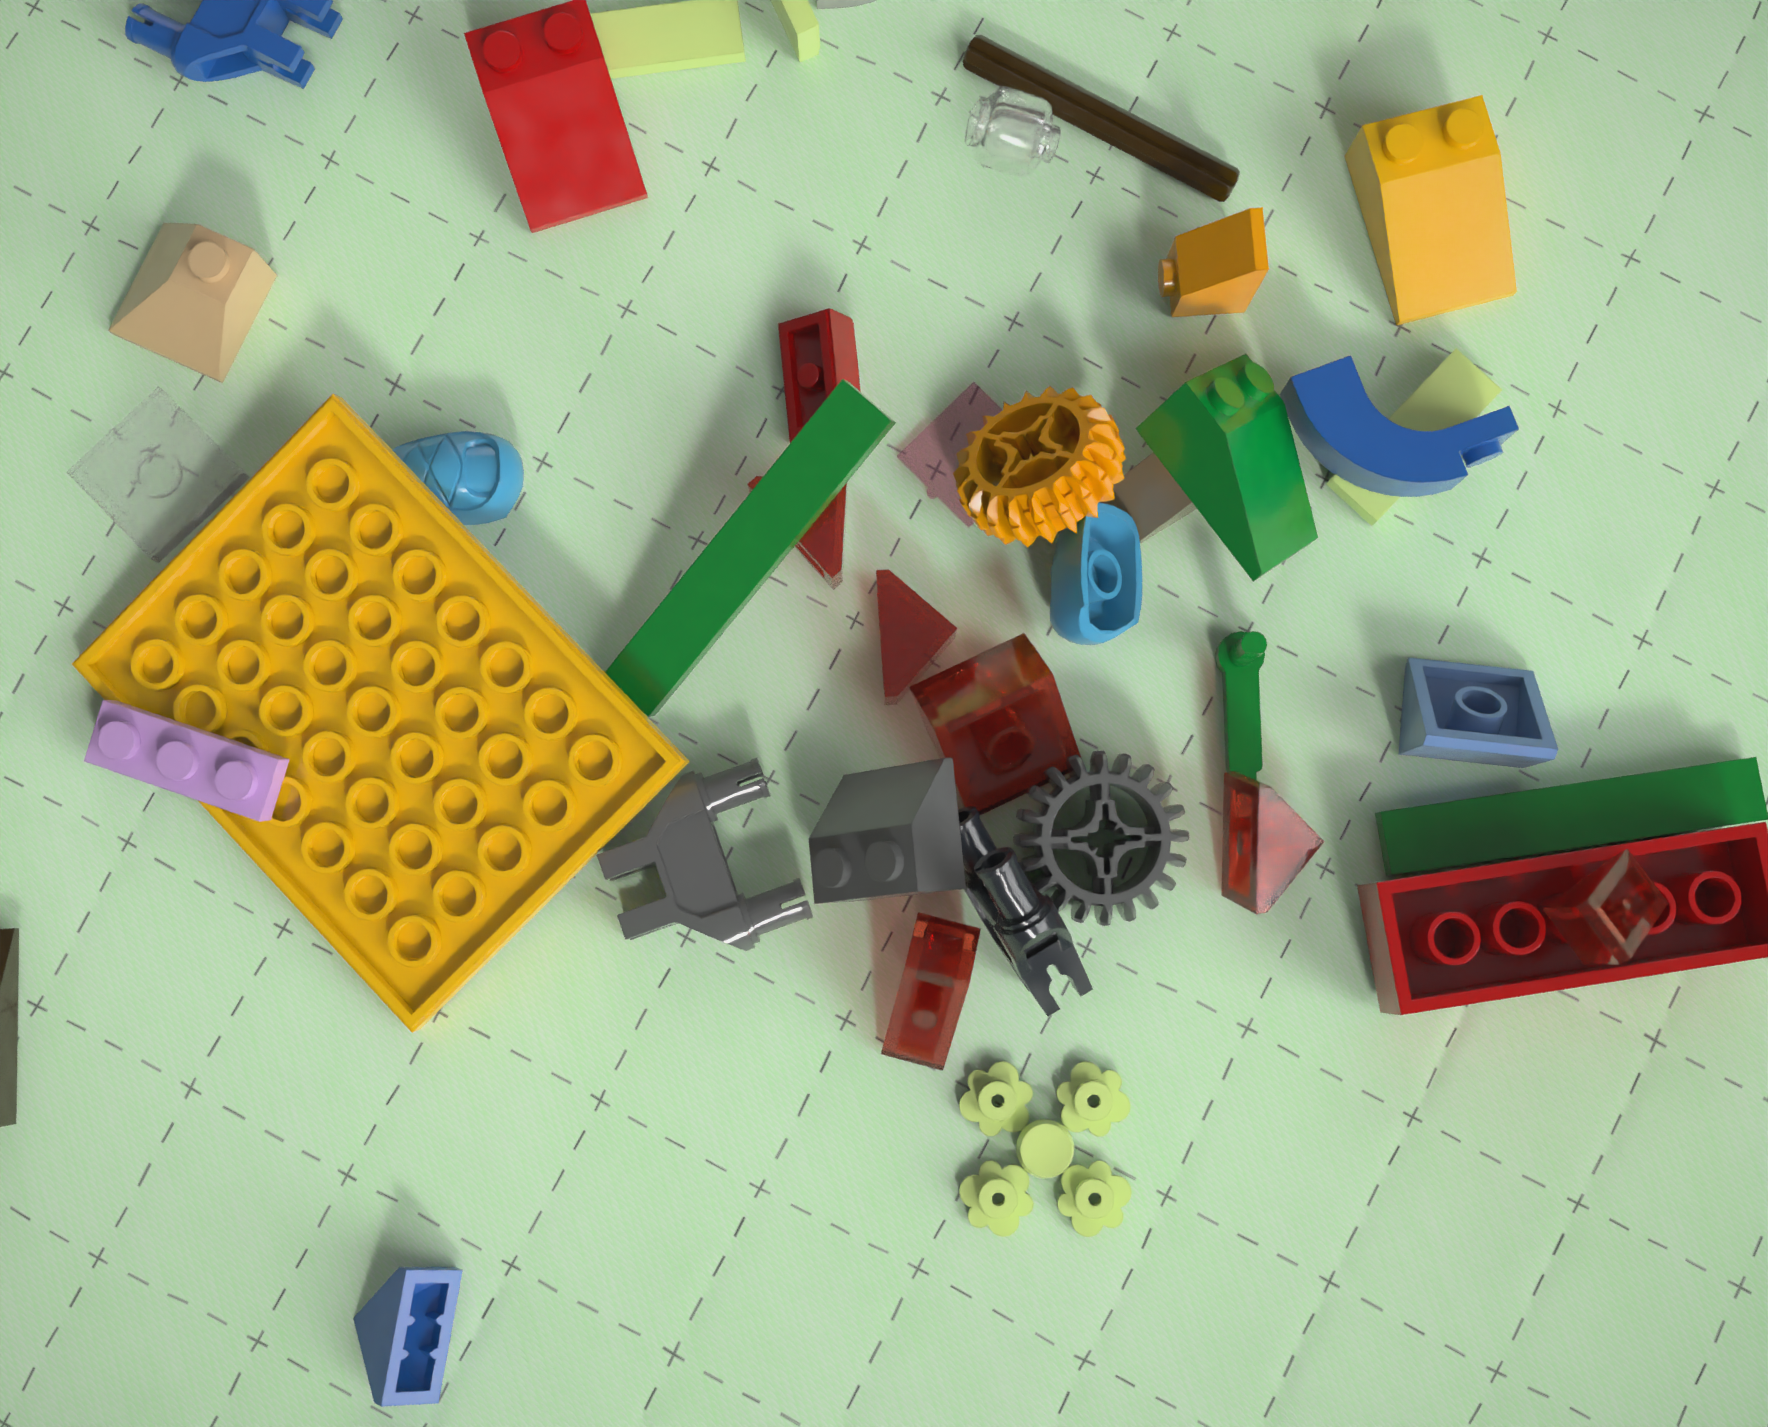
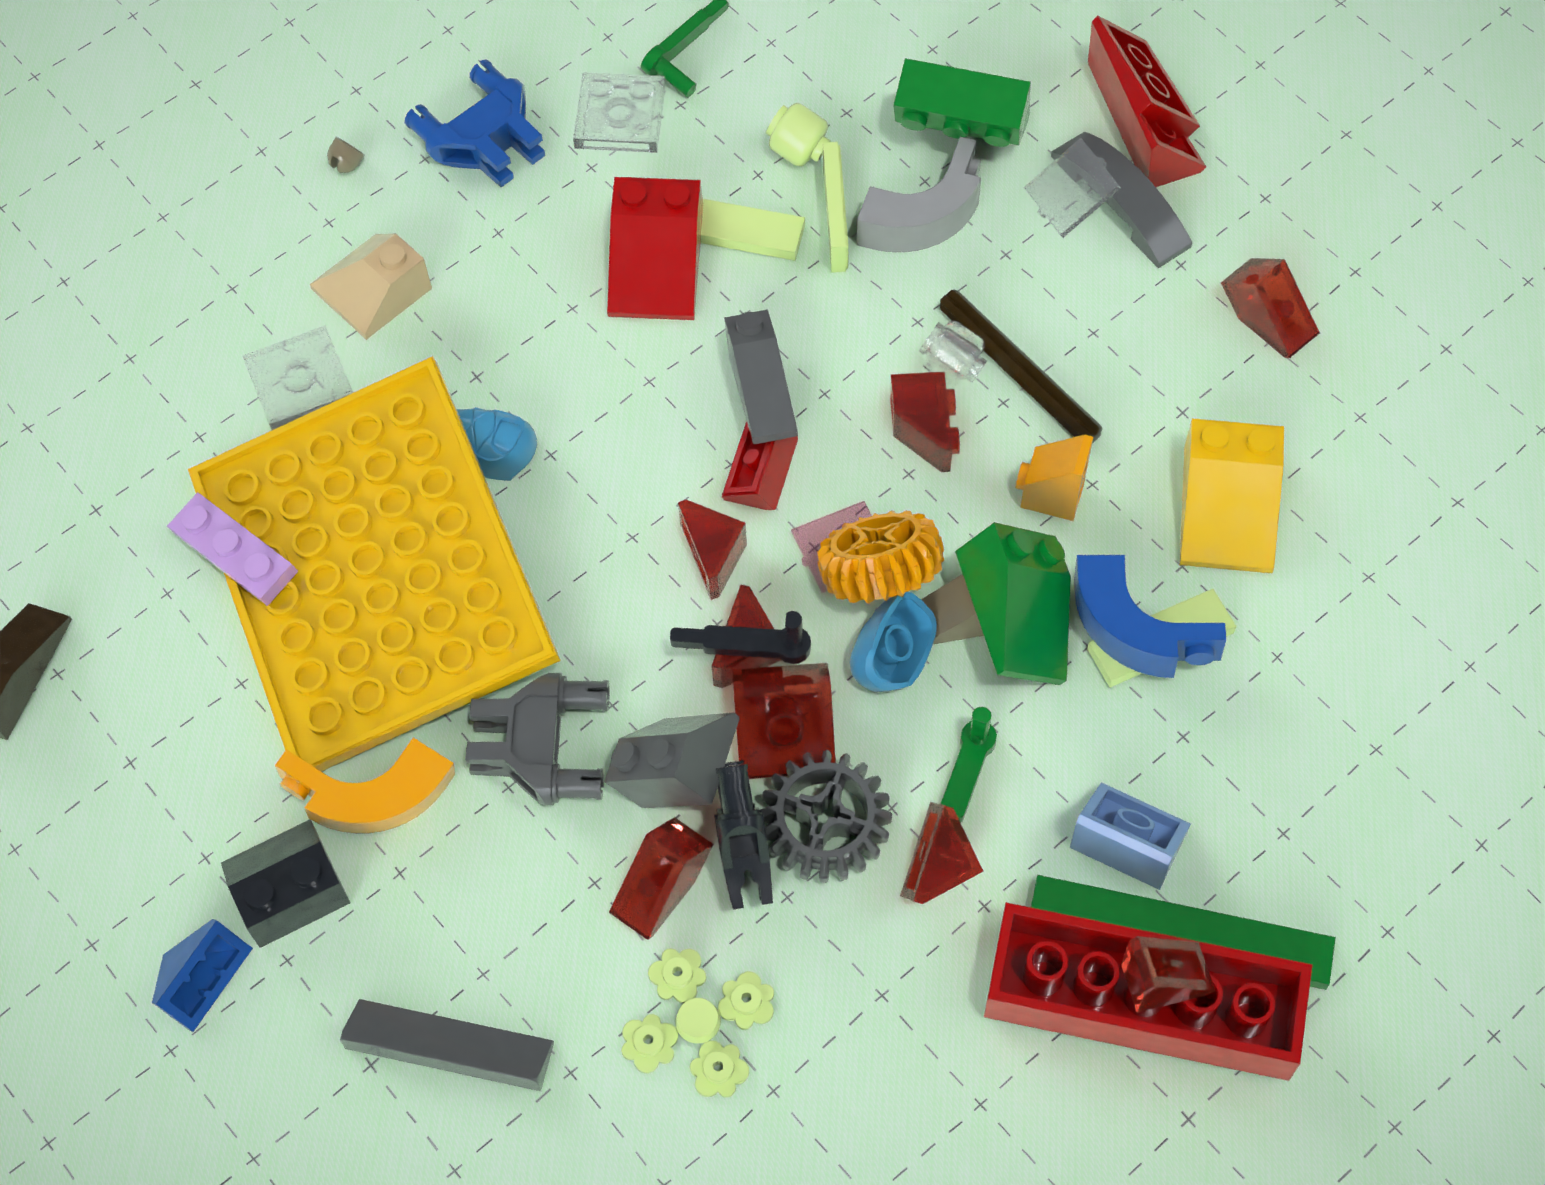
camera: 25 degrees right, 20 degrees down
(65, 117) = (343, 156): none -> dark tan hinge
(460, 1176) = (284, 883): none -> black slope
(532, 1041) = (372, 805): none -> light orange arch
(749, 547) = (660, 541): green tile -> none
(757, 1299) = (447, 1044): none -> dark grey slope
(779, 260) = (760, 376): none -> dark grey slope
(973, 634) = (789, 644): none -> black piece
(1007, 239) = (921, 416): none -> clear red slope

